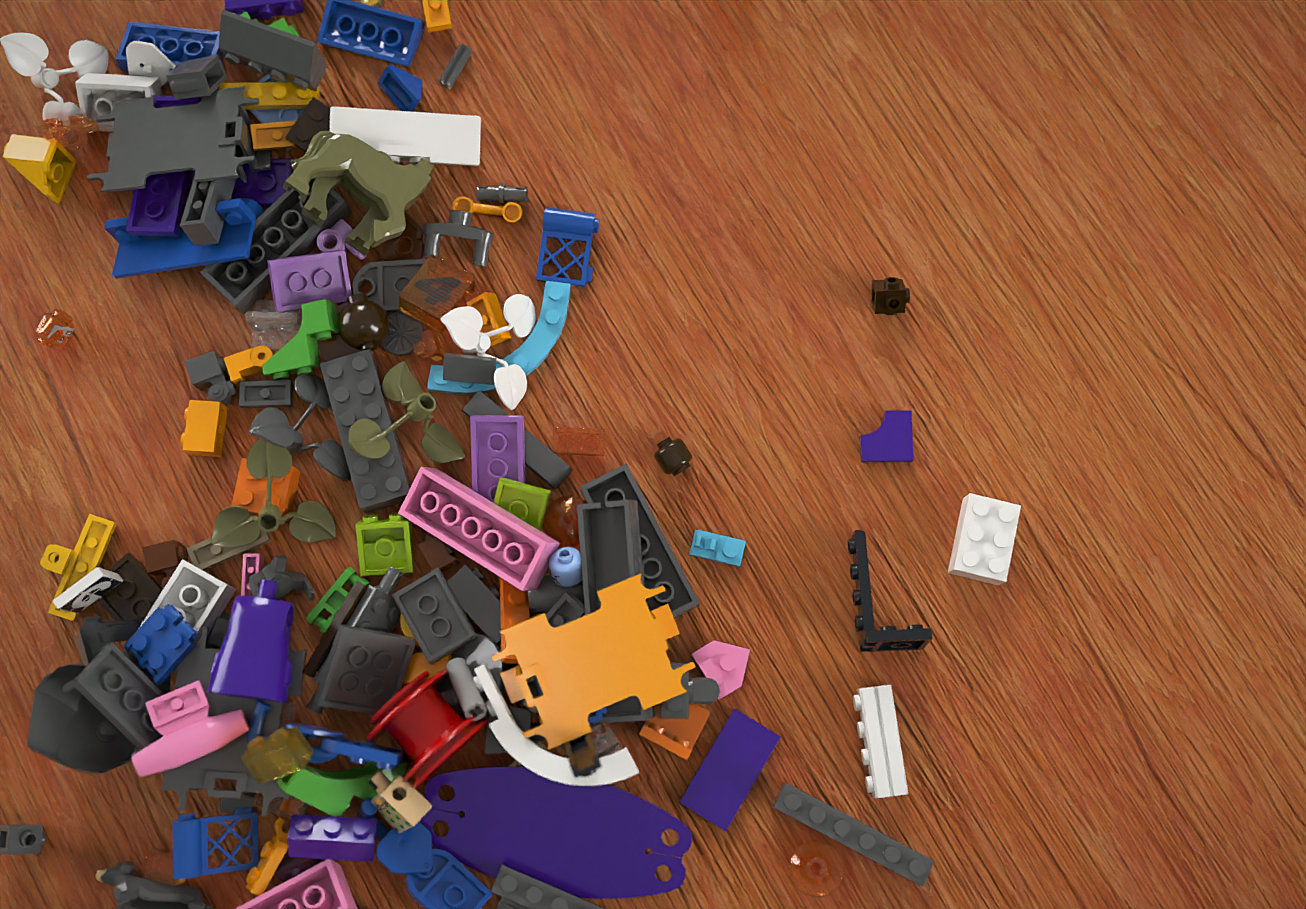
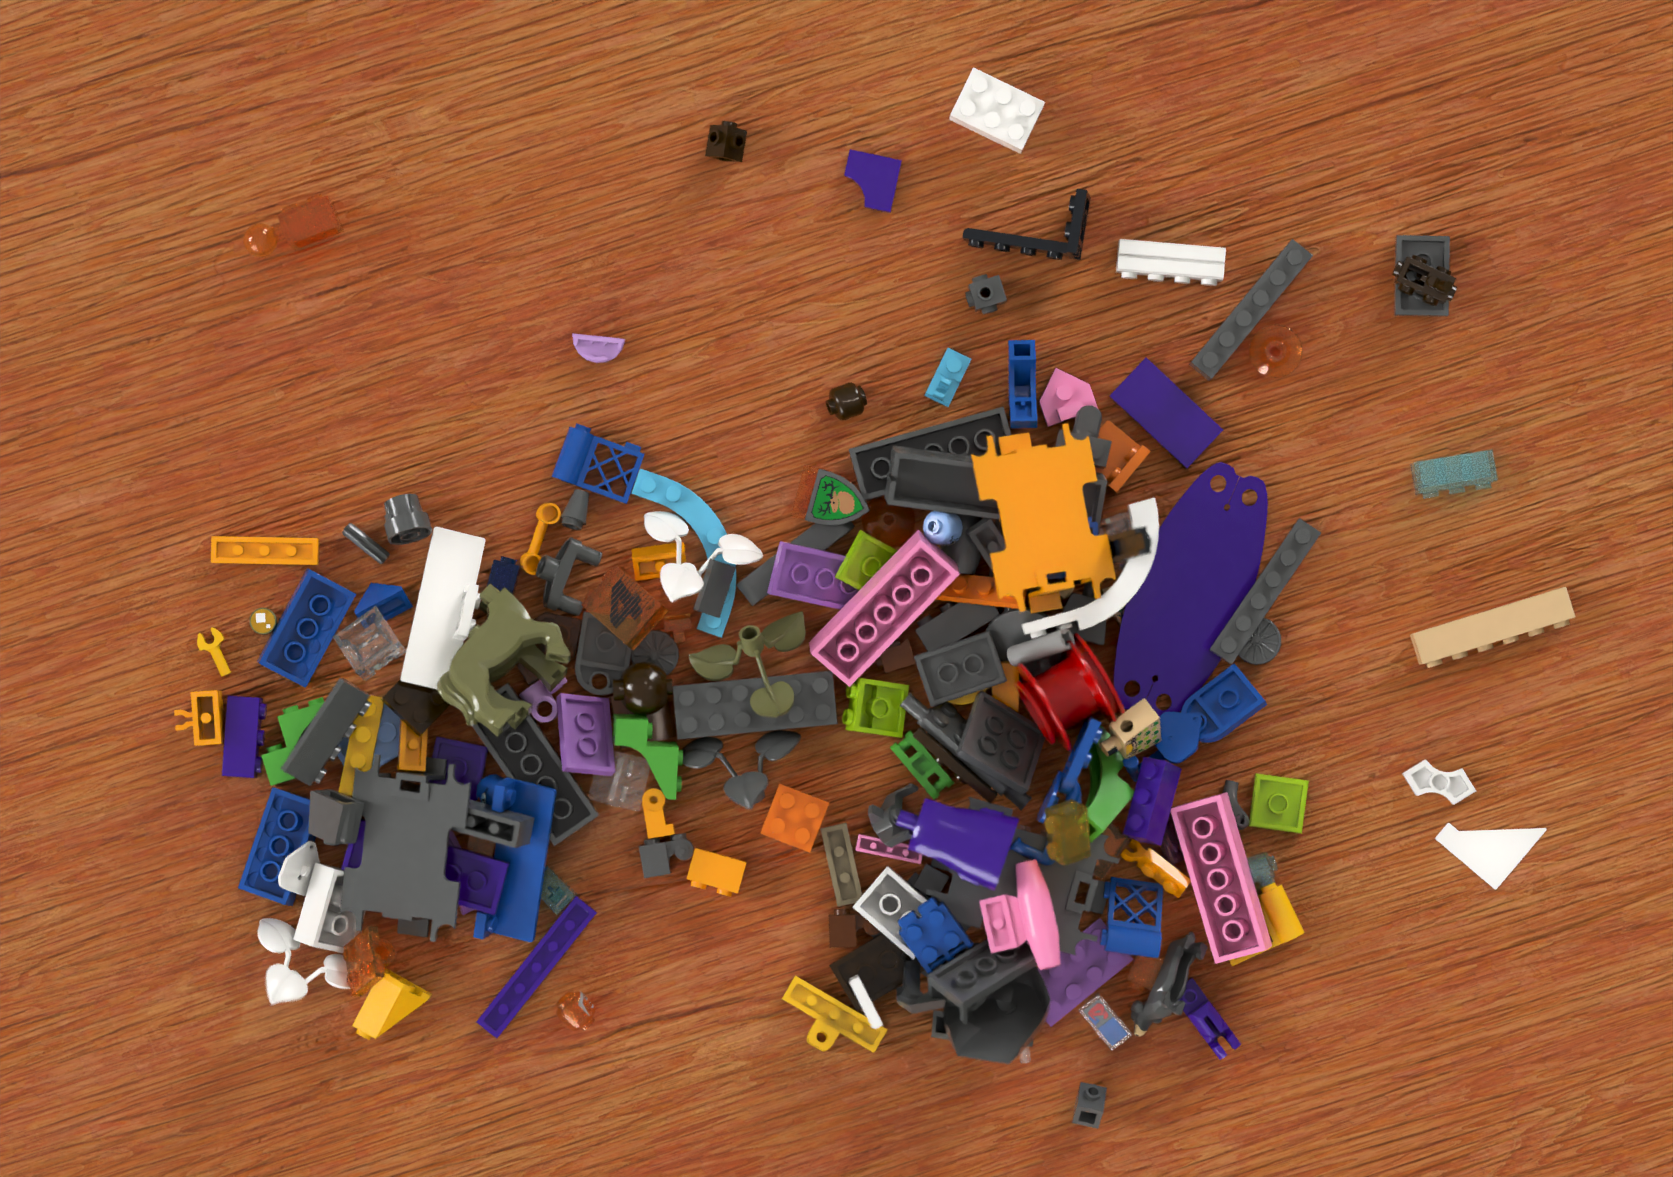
camera: 80 degrees left, 10 degrees up
(92, 286) = (536, 967): none -> dark purple plate
(111, 838) = (1105, 1022): none -> slope
(147, 802) = (1081, 974): none -> medium lavender plate
(163, 287) = (556, 891): none -> clear light blue slope
(236, 527) = (838, 780): olive plant -> none
(266, 394) = (692, 803): dark grey plate -> none
(360, 78) = (369, 643): none -> clear brick
(446, 185) = (504, 574): none -> clear blue brick
(481, 90) = (406, 520): none -> dark grey piece
(502, 193) = (524, 520): dark grey pin -> none
(518, 235) = (575, 512): none -> dark grey cone
(574, 461) = (835, 500): none -> shield
(672, 225) = (597, 348): none -> lavender plate
(726, 619) = (1022, 383): none -> blue arch
(803, 574) = (992, 286): none -> dark grey brick

